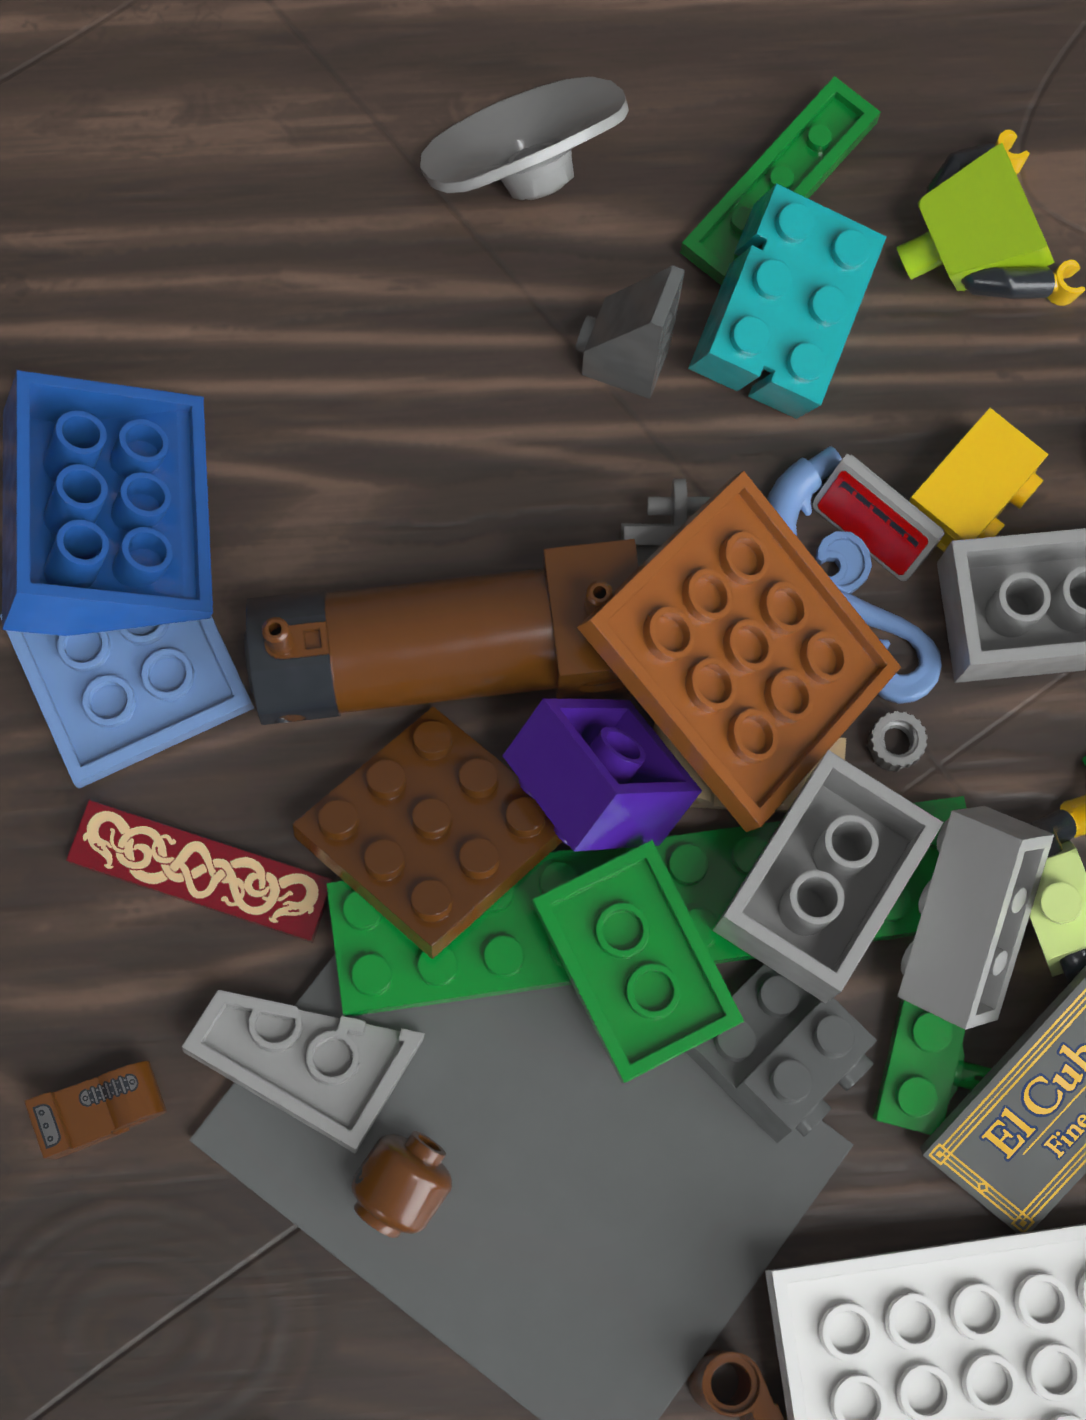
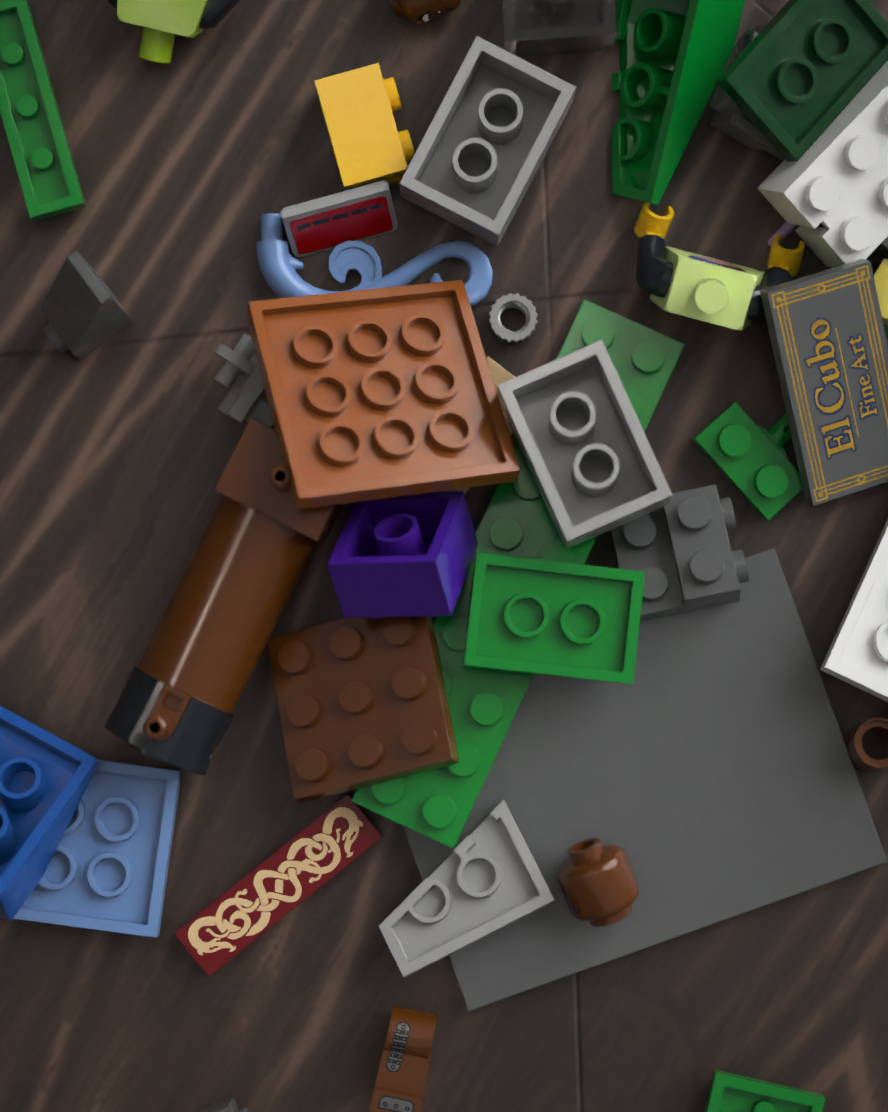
camera: 50 degrees left, 10 degrees up
(788, 301) = (137, 173): teal piece -> none
(974, 915) = (677, 359): light grey brick -> none

